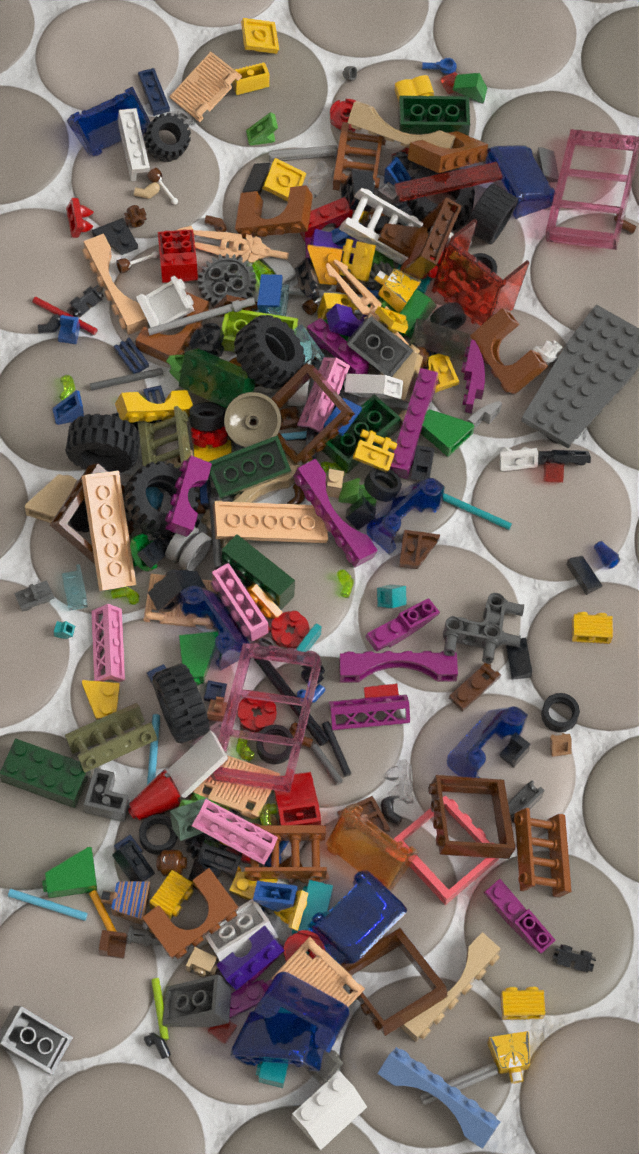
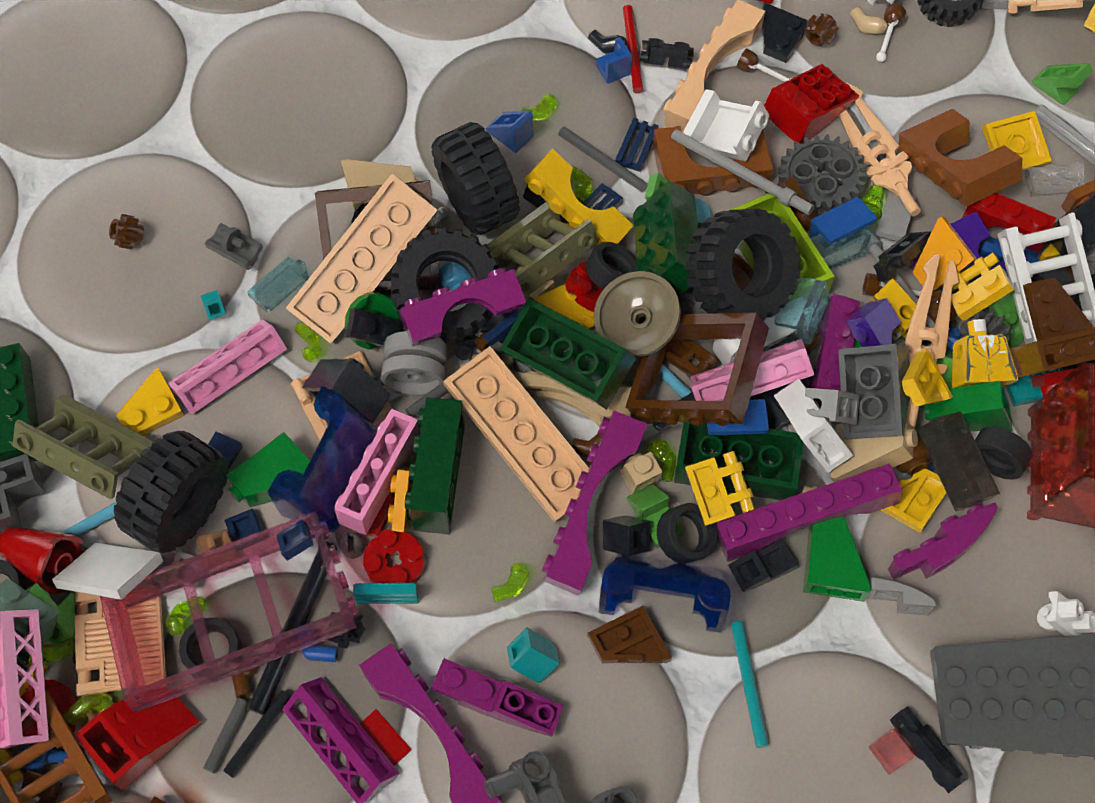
camera: 60 degrees right, 0 degrees up
(208, 339) = (718, 197): black tile -> none
(217, 223) = (894, 115): reddish brown arm -> none
(253, 661) = (294, 539): none -> dark blue tile
(257, 177) = (987, 115): black slope -> none
(257, 723) = (229, 605): red plate -> none
(376, 364) = (836, 405): none -> light grey hinge
(489, 338) = (1013, 527): dark orange arch -> none
(518, 459) = (864, 679): white tile -> none

